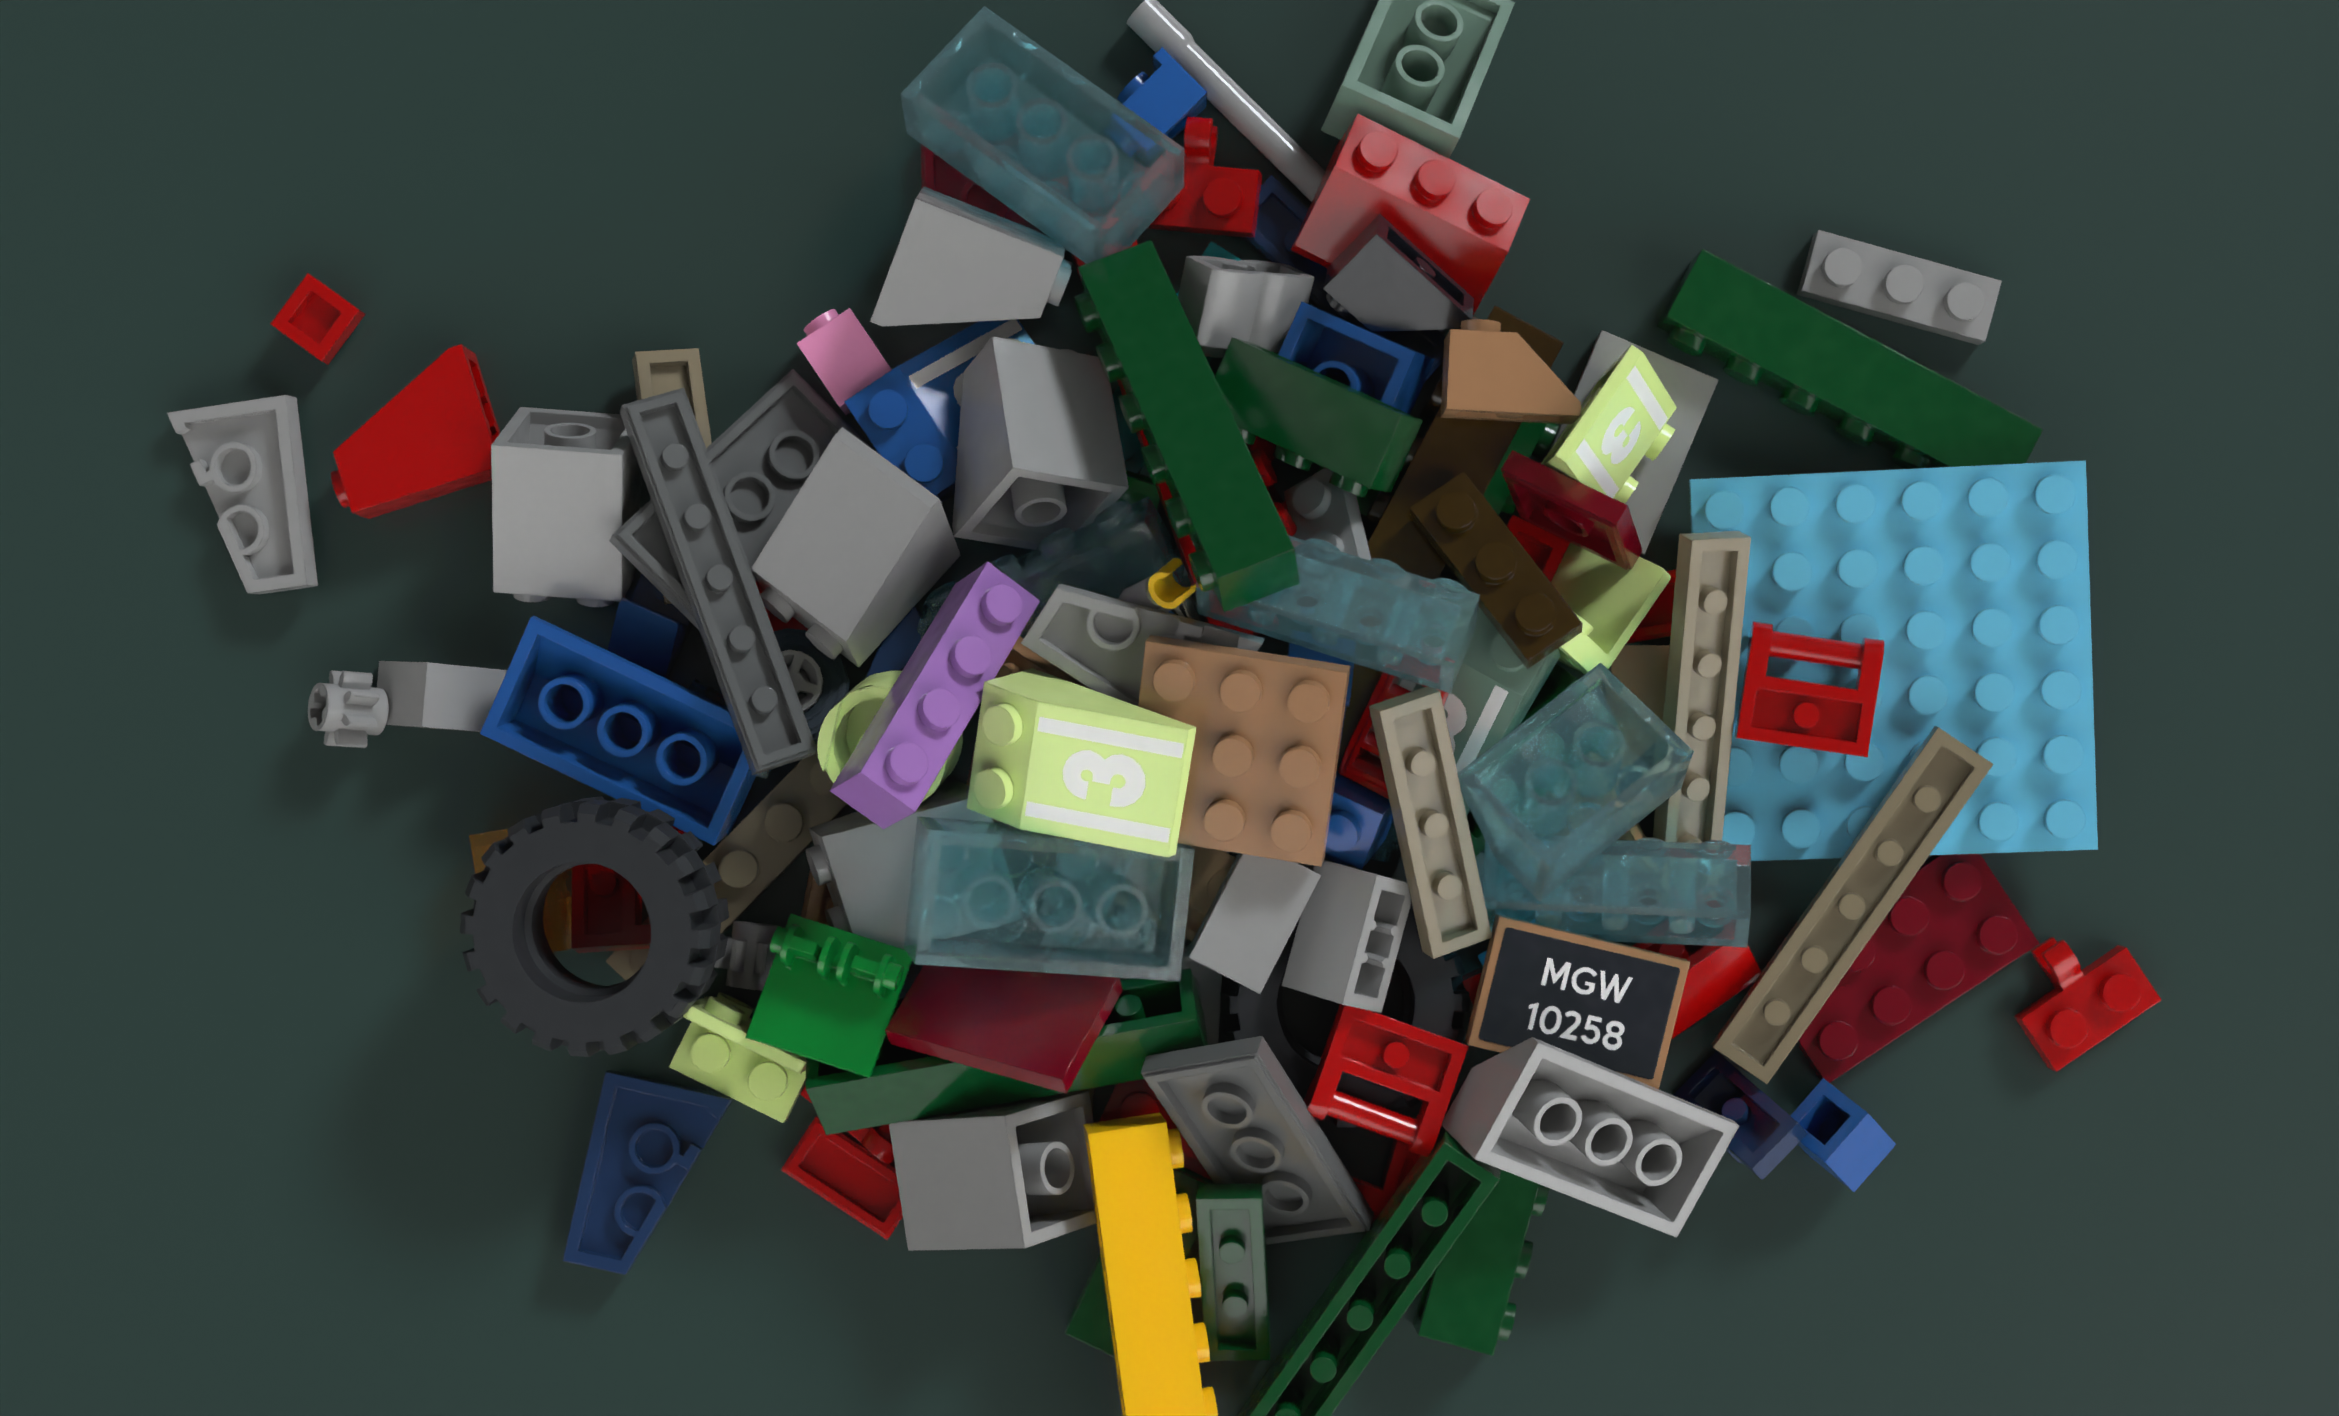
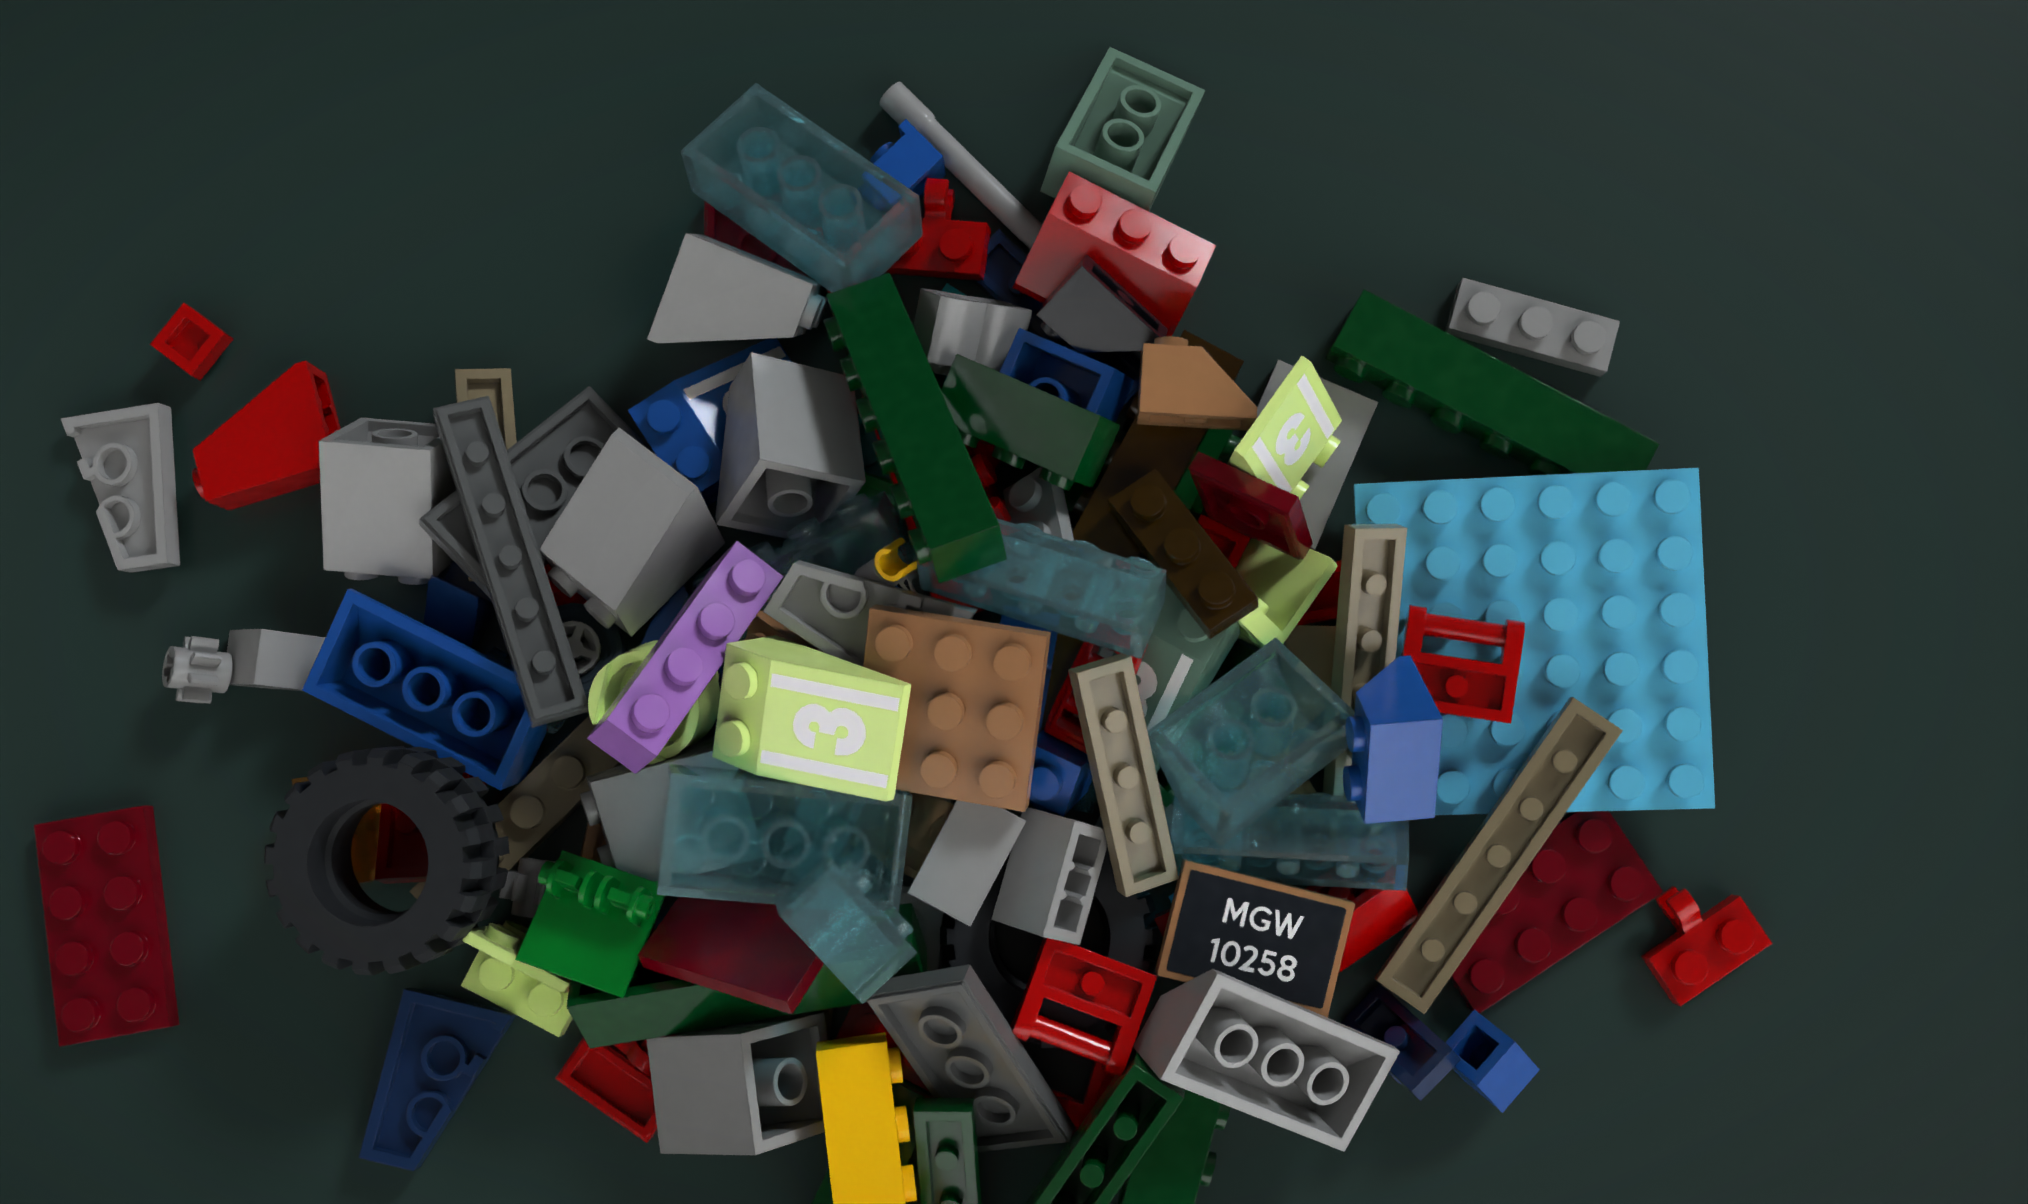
camera: 10 degrees right, 5 degrees down
(254, 1003) = (106, 925): none -> dark red plate
(842, 354) = (629, 372): bright pink brick -> none
(1126, 997) = (847, 927): none -> clear light blue brick
(1734, 787) = (1394, 746): none -> blue slope

